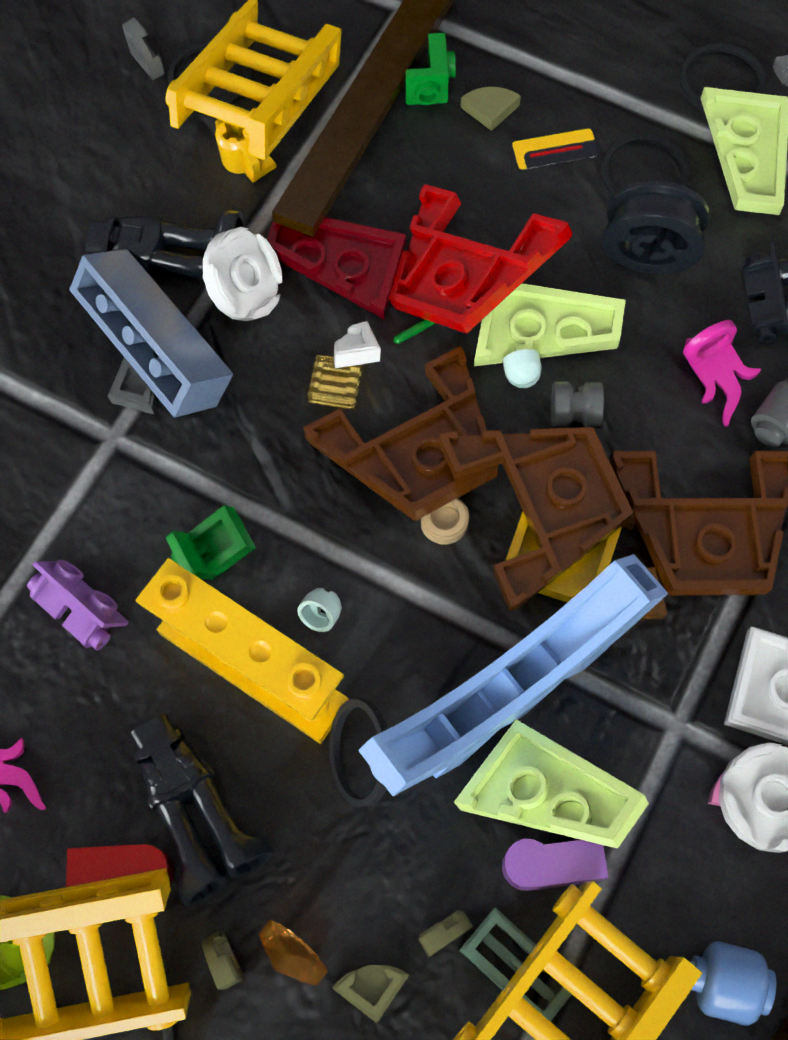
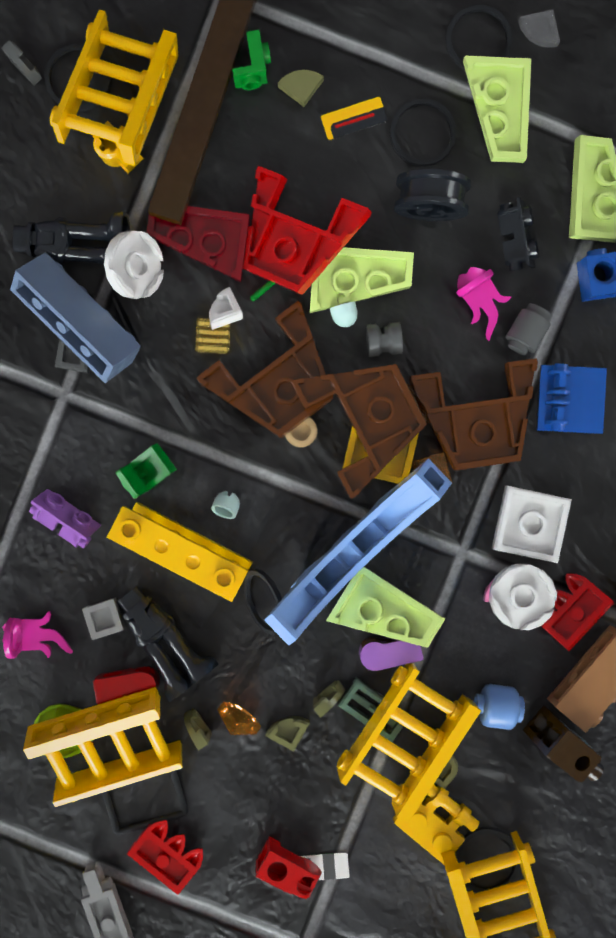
camera: 10 degrees left, 20 degrees up
(104, 758) = (103, 618): none -> light grey plate

